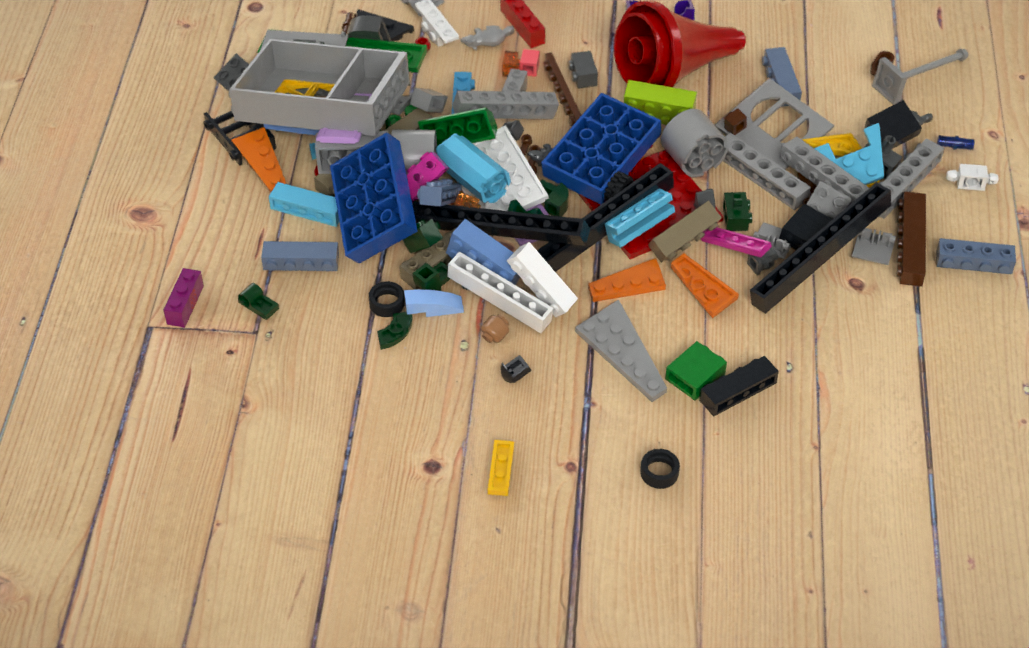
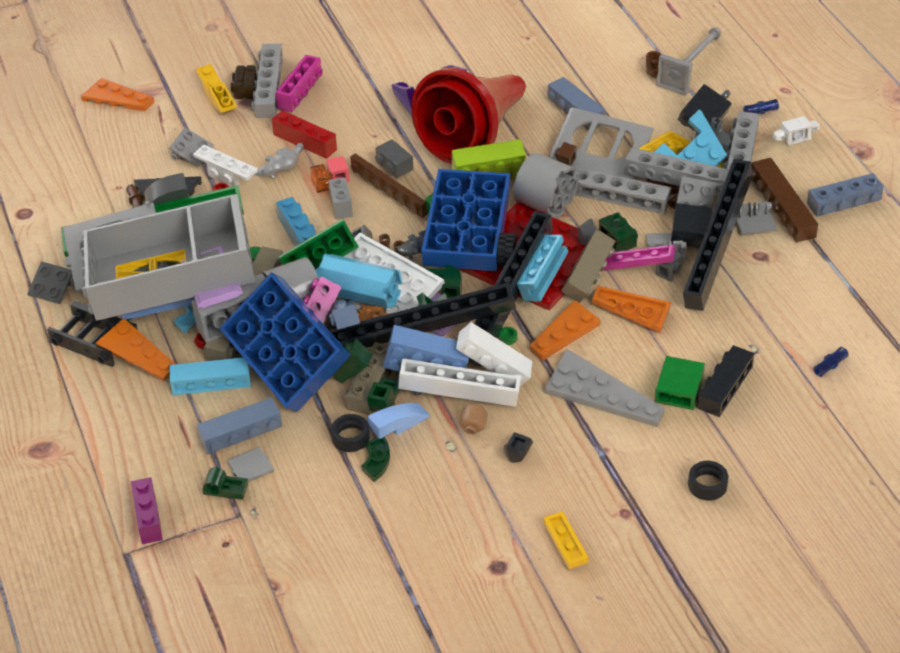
camera: 25 degrees left, 5 degrees down
(291, 294) = (251, 465): none -> light grey piece
(428, 100) = (267, 236): light grey brick -> none
(508, 103) = (353, 211): light grey brick -> none
(577, 267) = (508, 335): none -> green tile
(850, 407) = (830, 361): none -> clear blue pin

